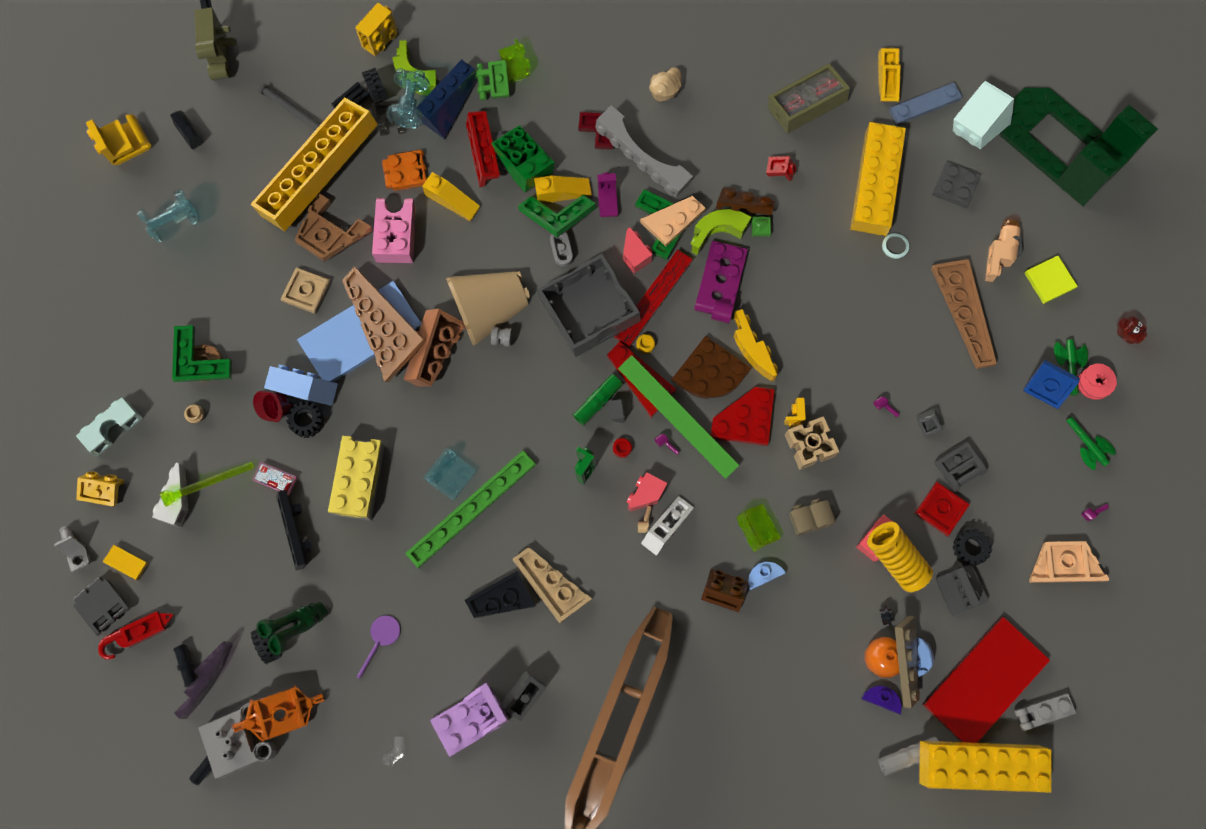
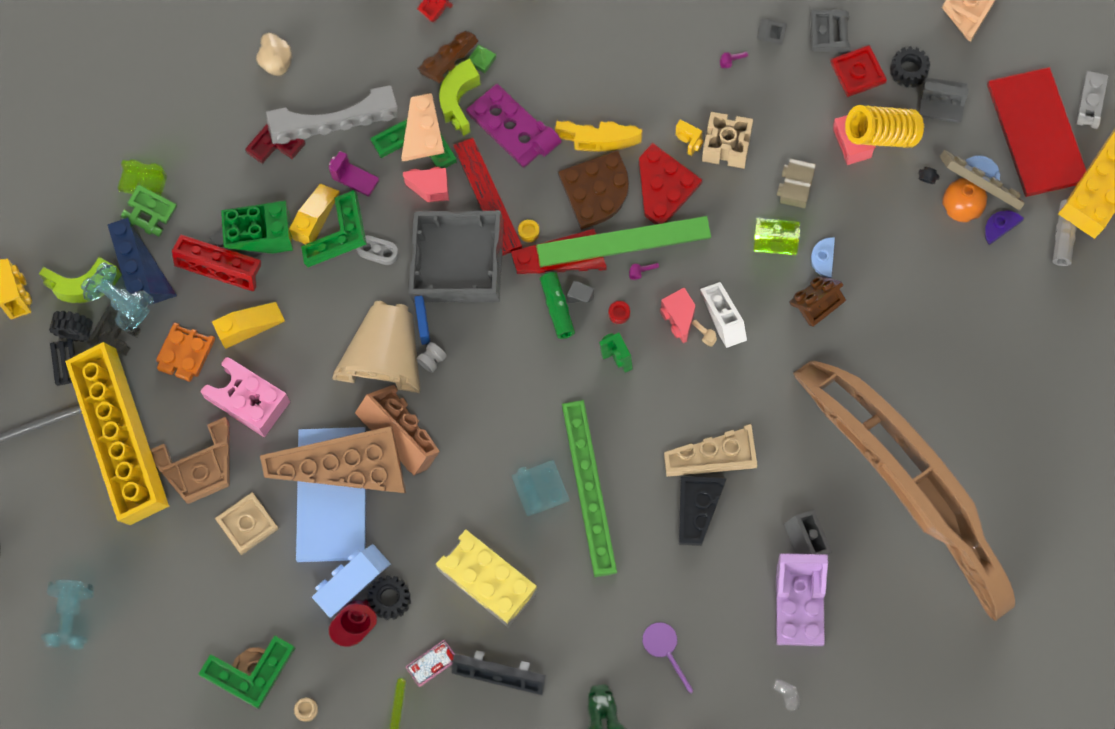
camera: 55 degrees left, 5 degrees down
(526, 312) = (422, 320): none -> blue tile

